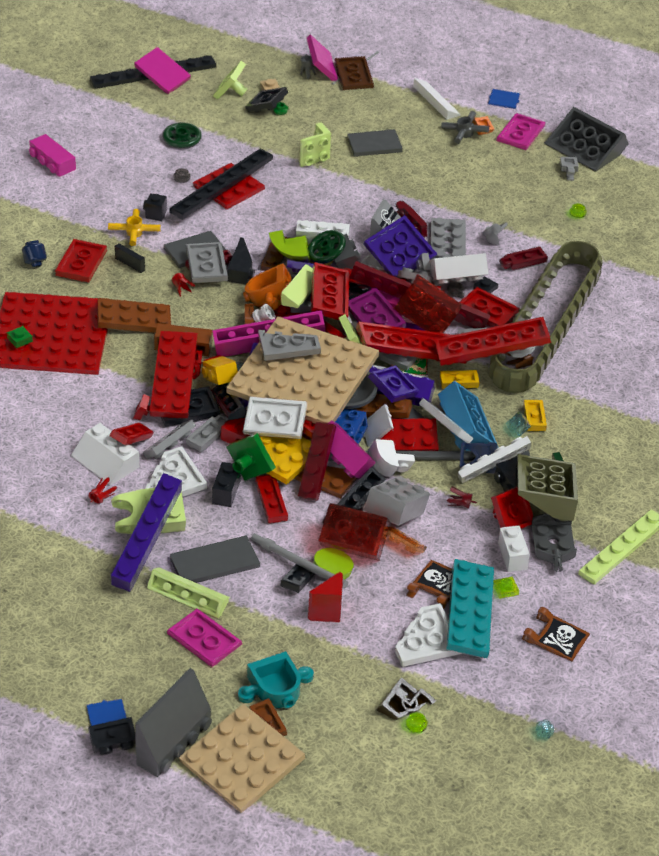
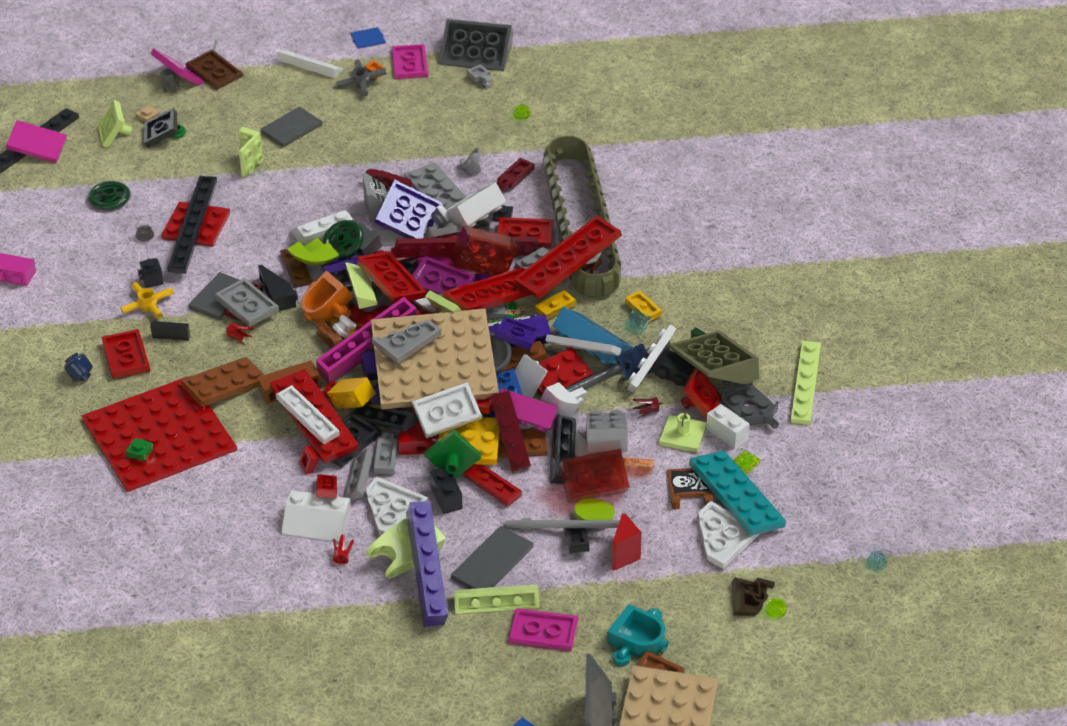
camera: 30 degrees left, 0 degrees up
(164, 369) = (307, 414): none -> white tile
(472, 536) = (683, 433): none -> yellowish green tile
(557, 636) = (819, 481): flag -> none

